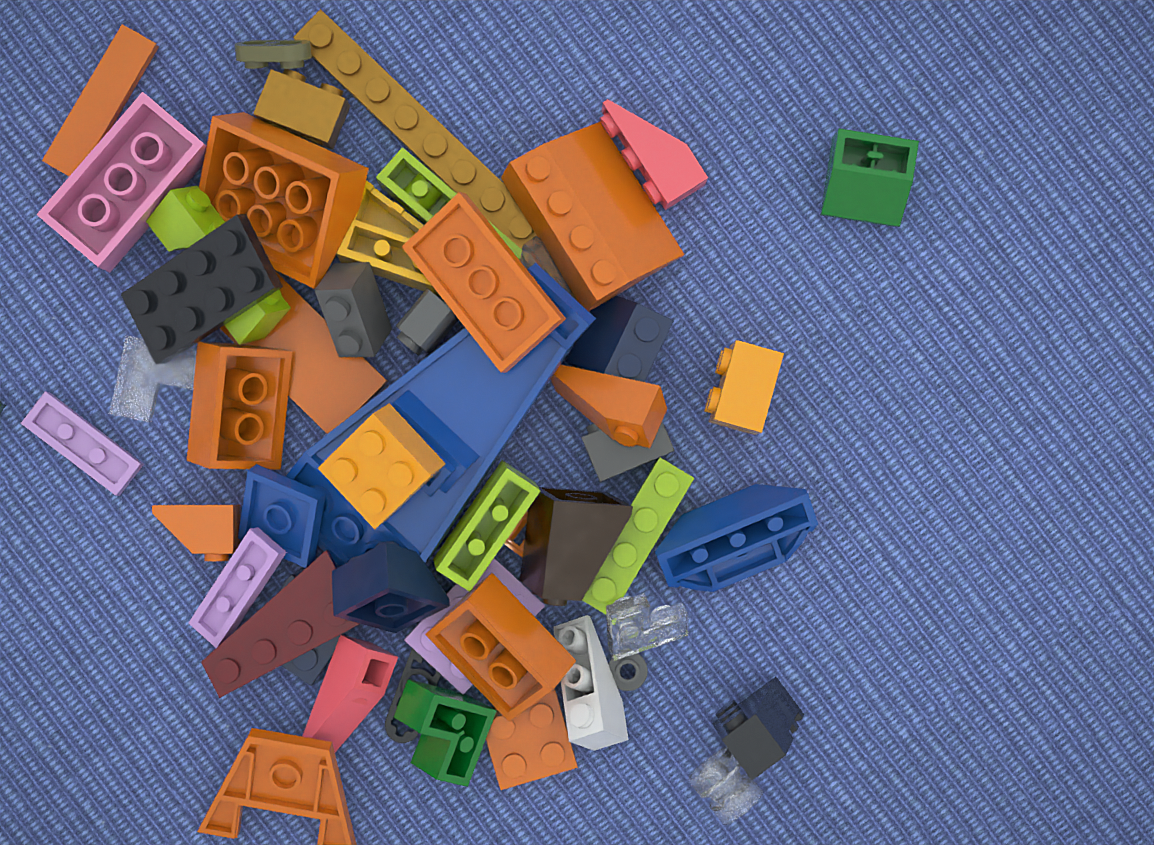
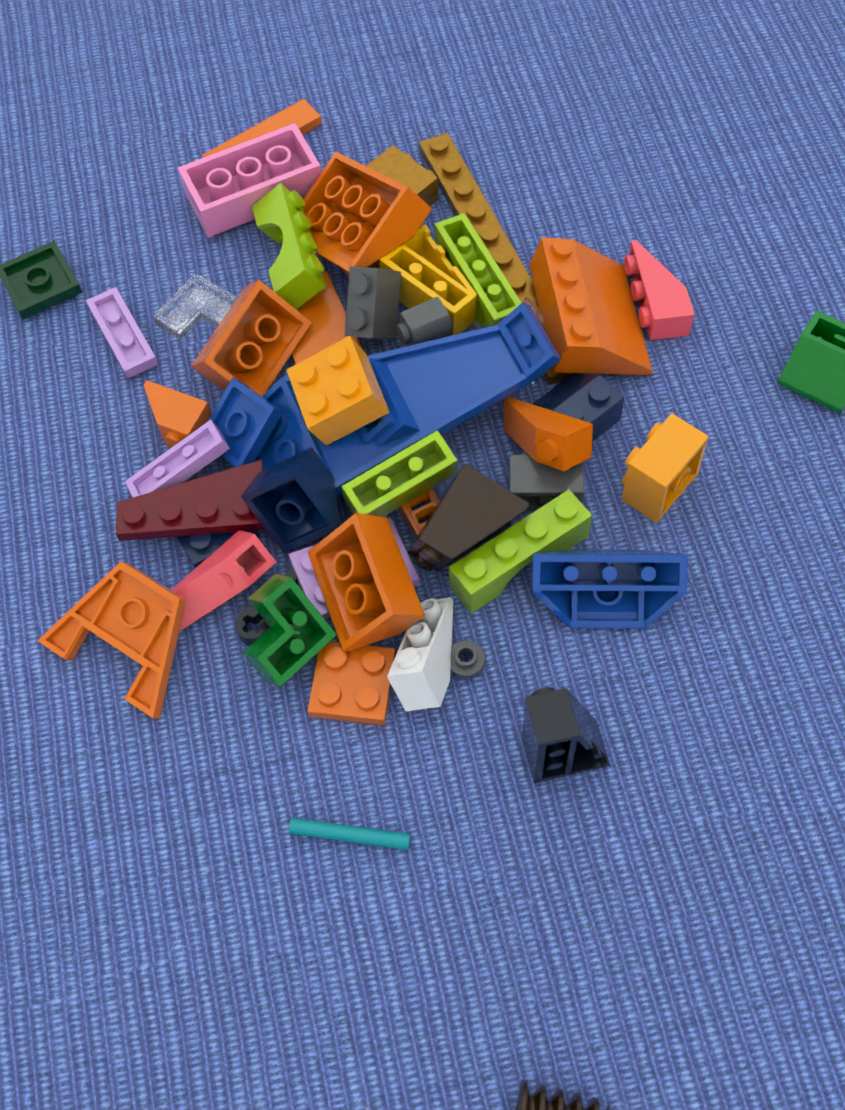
camera: 30 degrees right, 25 degrees down
(201, 289) = (266, 246): black plate -> none
(260, 52) = (405, 139): olive plate -> none
(483, 282) = (483, 302): orange plate -> none
(635, 629) = (487, 621): clear plate -> none
(729, 790) = (513, 793): clear wheel -> none

